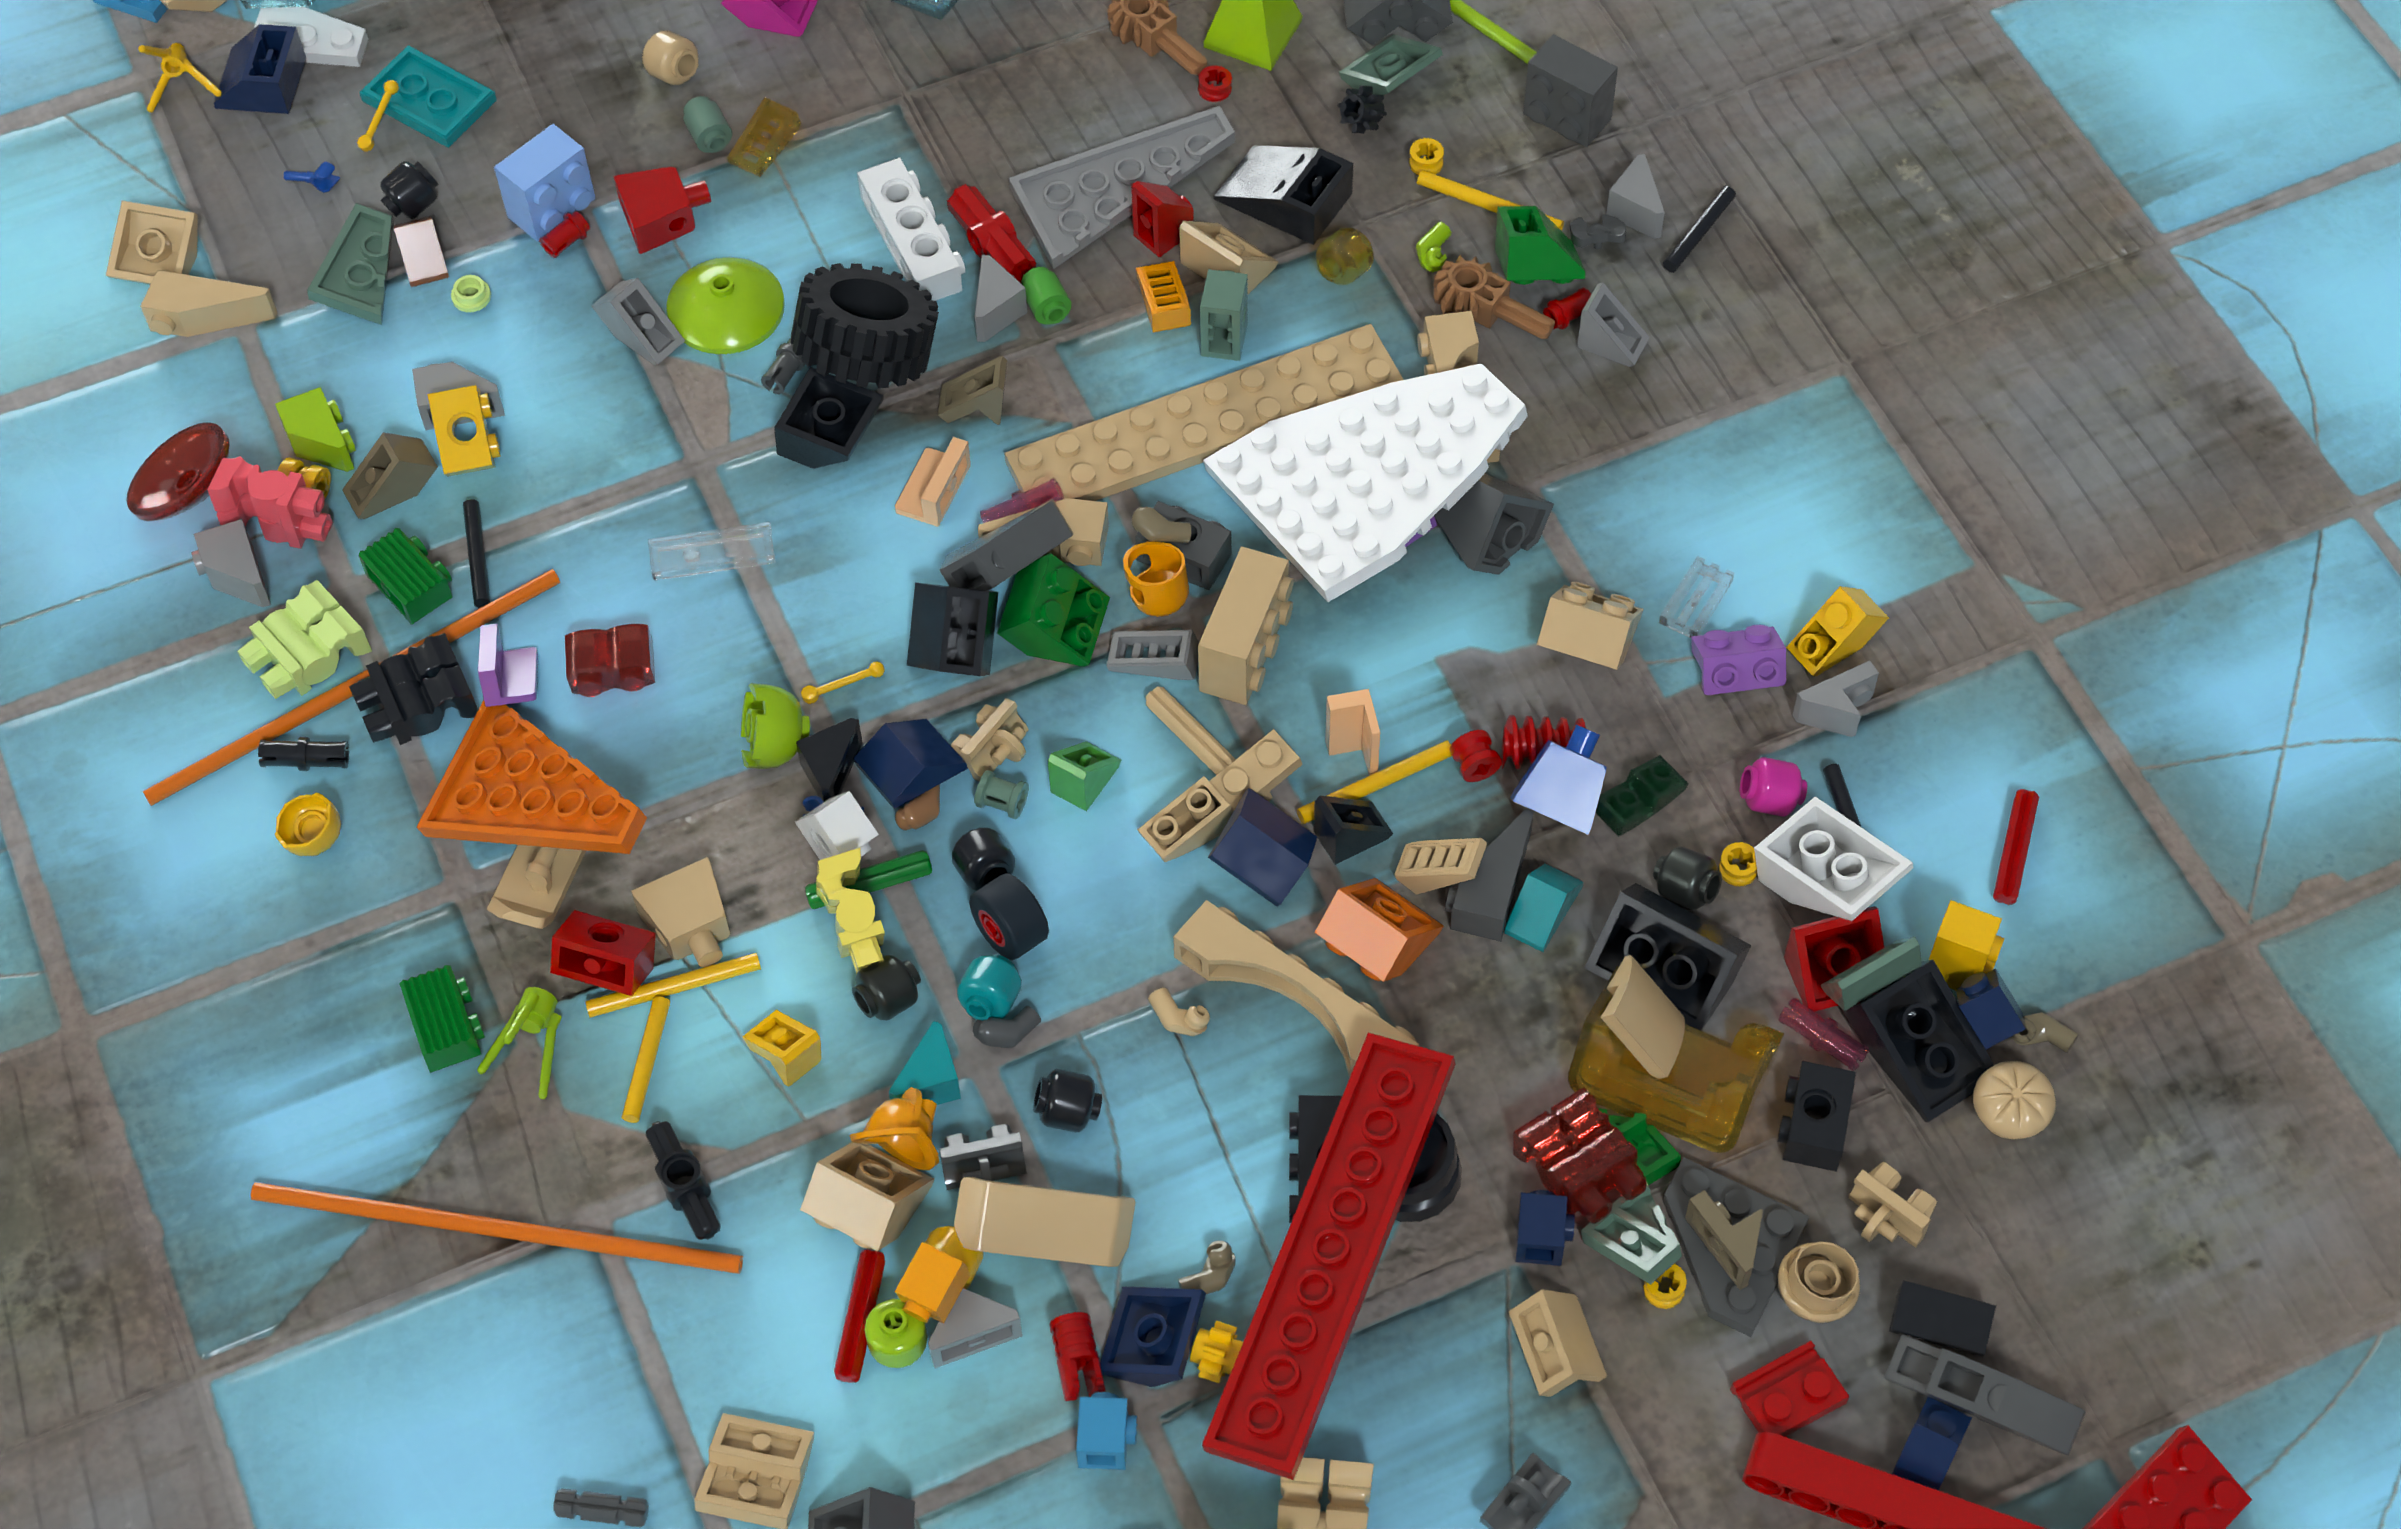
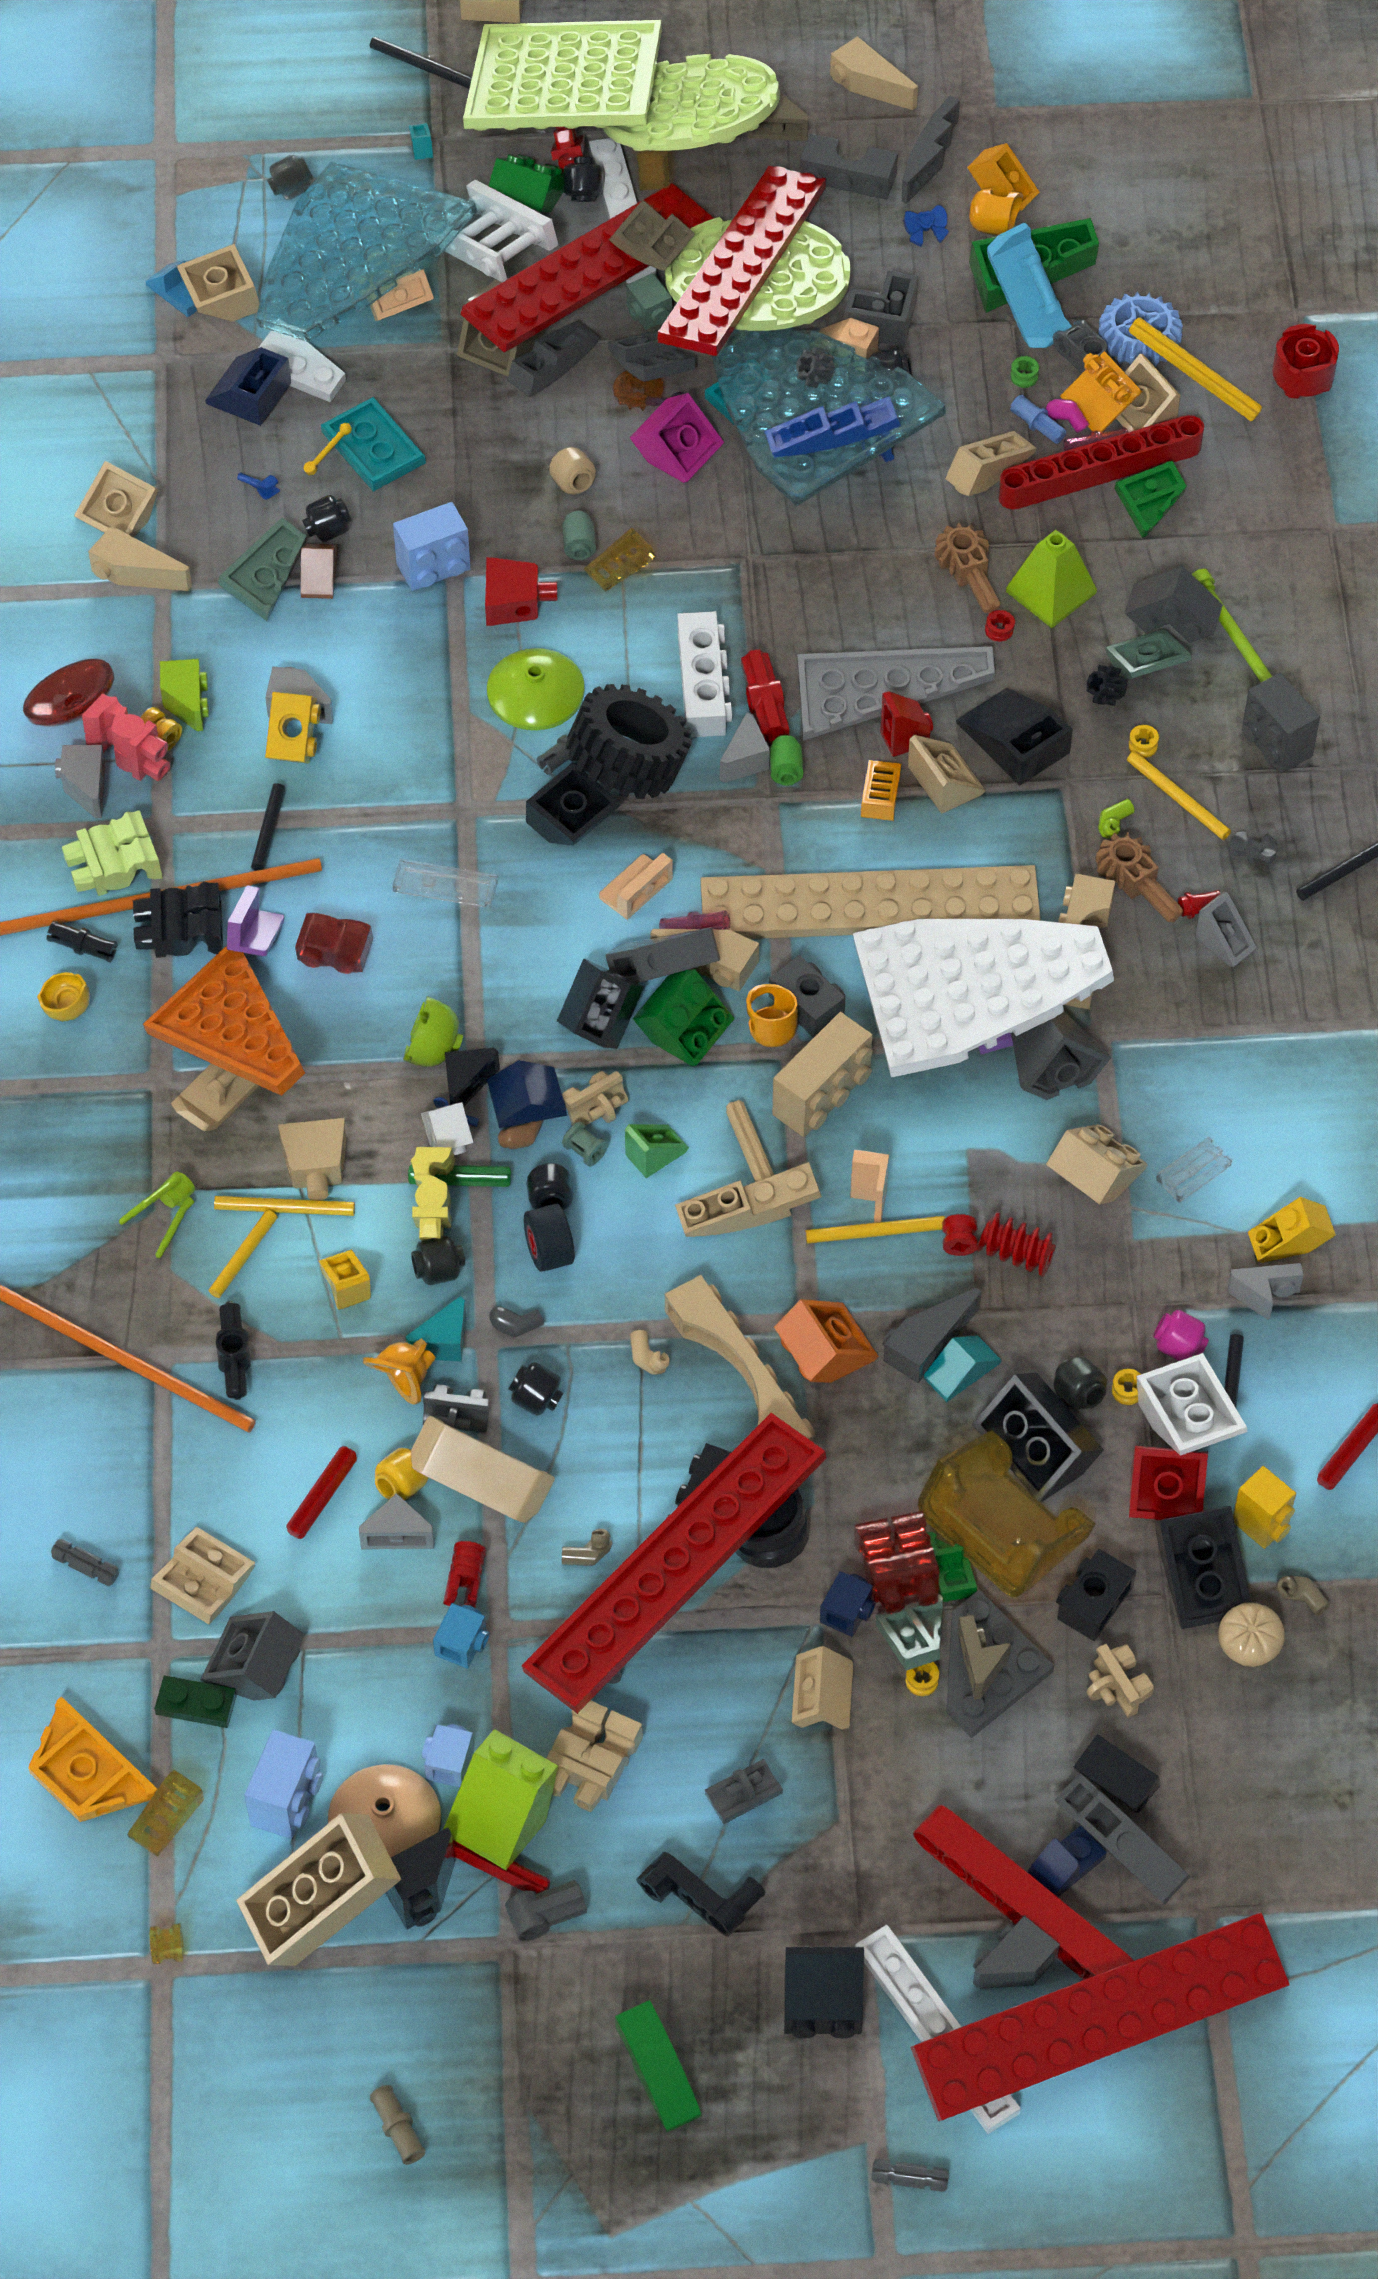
camera: 20 degrees right, 0 degrees up
(173, 64) = (186, 358): yellow plant -> none
(389, 474) = (225, 744): dark tan slope -> none
(406, 575) = (208, 827): green brick -> none
(441, 1018) = (106, 1173): green brick -> none
(470, 294) = (342, 618): yellowish green plate -> none
(564, 234) = (433, 592): red pin -> none
(602, 952) = (240, 1164): red brick -> none
(638, 321) = (461, 681): light grey slope -> none
(811, 694) = (475, 1018): yellow hinge -> none
(865, 1194) = (360, 1406): tan slope -> none
(894, 1335) = (340, 1512): lime head -> none
(931, 1284) = (376, 1484): light orange brick -> none
(975, 390) = (699, 821): dark tan slope -> none
(989, 987) = (513, 1285): teal head -> none
(1152, 1334) = (525, 1579): dark blue slope -> none
(1157, 528) = (786, 976): dark tan arm -> none
(1169, 667) = (761, 1087): light grey slope -> none
(1216, 1351) = (563, 1604): yellow gear -> none
(1224, 314) = (916, 821): sand green brick -> none
(1264, 847) = (764, 1250): dark blue slope -> none
(1344, 256) = (1037, 803): clear yellow head -> none
(1348, 826) = (838, 1256): black slope -> none
(1435, 863) = (890, 1306): tan slope -> none
(1534, 247) = (1193, 845): green slope -> none
(1564, 781) = (1014, 1277): torso -> none
(1636, 199) = (1294, 829): light grey slope -> none
(1640, 796) = (1080, 1308): clear green slope -> none
(1644, 1019) = (991, 1475): tan slope -> none
(1740, 659) = (1203, 1229): medium lavender bracket -> none
(1790, 1392) = (980, 1786): red plate -> none
(1819, 1281) = (1036, 1714): tan piece -> none
(1823, 1034) = (1130, 1536): clear pink pin -> none
(1874, 973) = (1181, 1501): sand green slope -> none
(1990, 1008) = (1264, 1559): dark blue brick -> none

